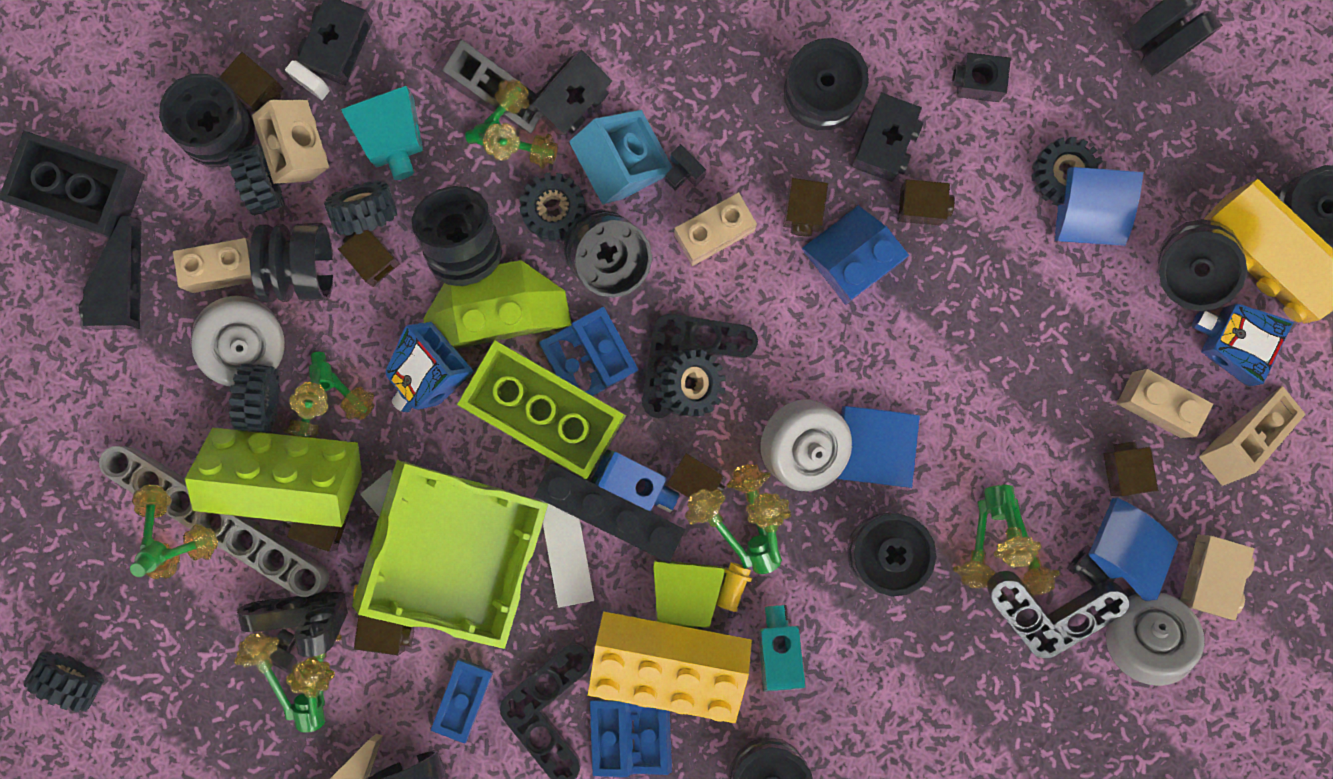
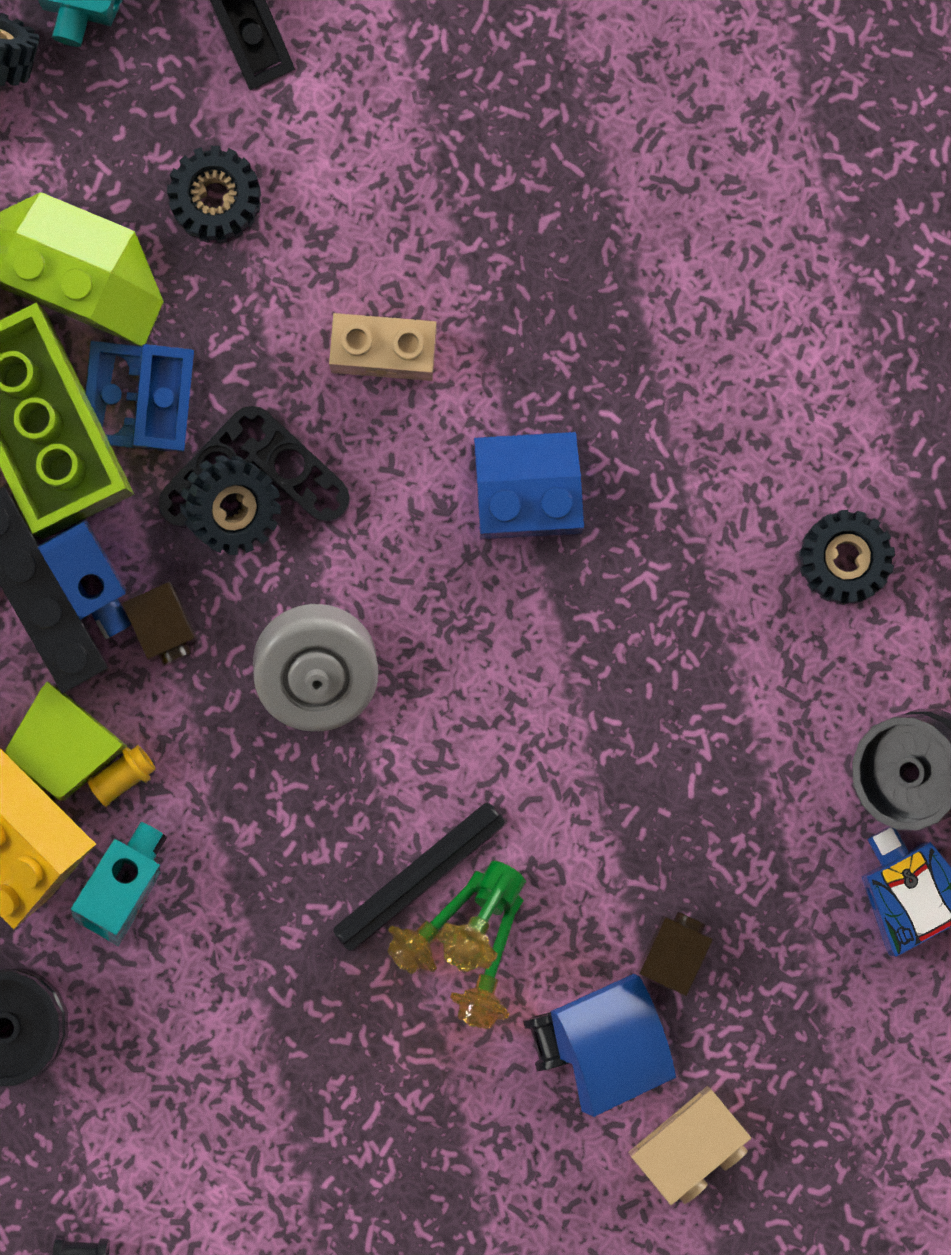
camera: 30 degrees right, 0 degrees up
(457, 235) = (76, 154): black wheel -> none
(501, 139) = (198, 75): clear yellow plant -> none
(550, 101) = (343, 54): black brick -> none
(620, 155) = (335, 187): dark azure slope -> none
(626, 256) = (230, 317): black wheel -> none
(684, 168) = (398, 252): black tile -> none
(765, 510) = (206, 705): clear yellow plant -> none
(805, 206) = (507, 391): dark brown brick -> none
(810, 71) = (621, 293): black wheel -> none
(881, 446) = (404, 729): blue slope -> none
(894, 117) = (674, 349): black brick -> none
(912, 560) = (297, 866): black wheel -> none
(925, 202) = (652, 481): dark brown brick -> none
(950, 522) = (419, 876): none -> black axle
(994, 69) = (844, 378): black brick -> none
(1055, 624) = (461, 1069): black beam -> none
(1098, 206) = (851, 622): slope -> none
(1156, 640) = (564, 1164): light grey wheel -> none
(1164, 403) = (768, 903): tan brick -> none
(1252, 438) = (849, 1013): tan slope -> none

